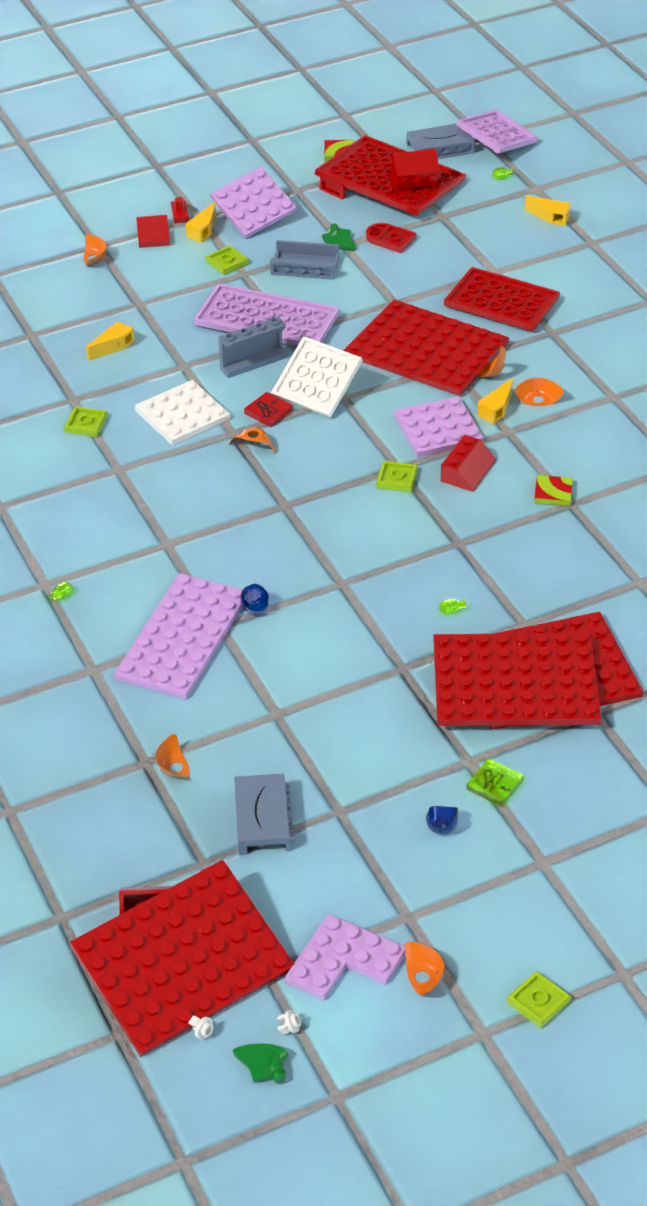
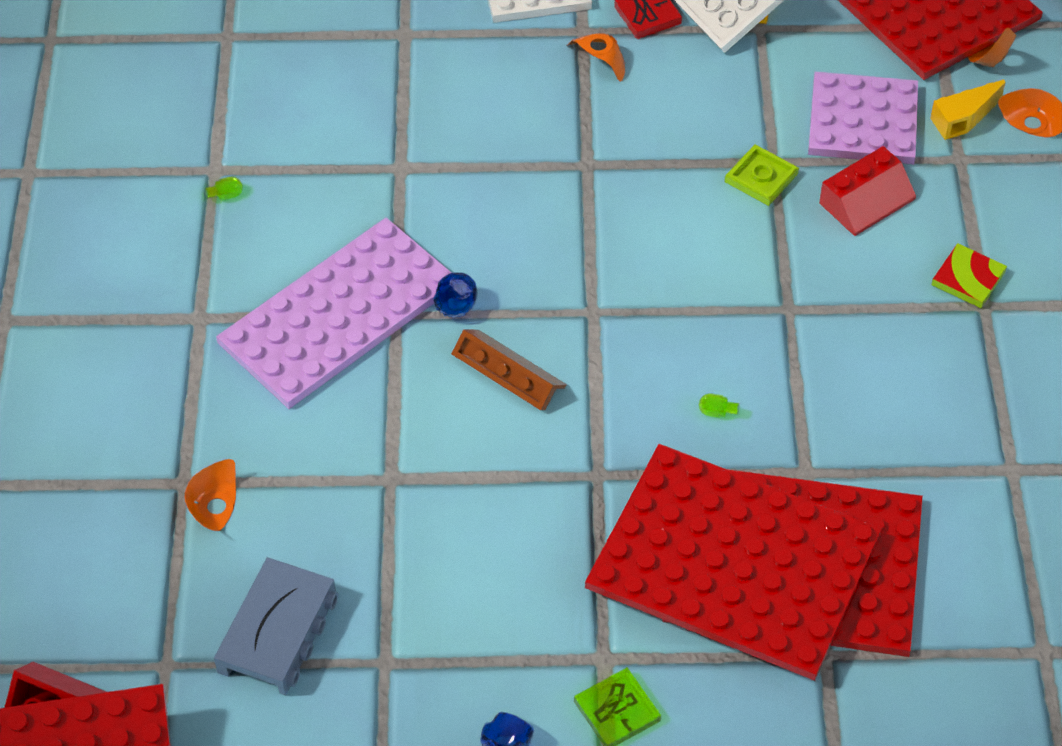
camera: 25 degrees right, 10 degrees up
(310, 629) = (506, 368): none -> dark orange panel

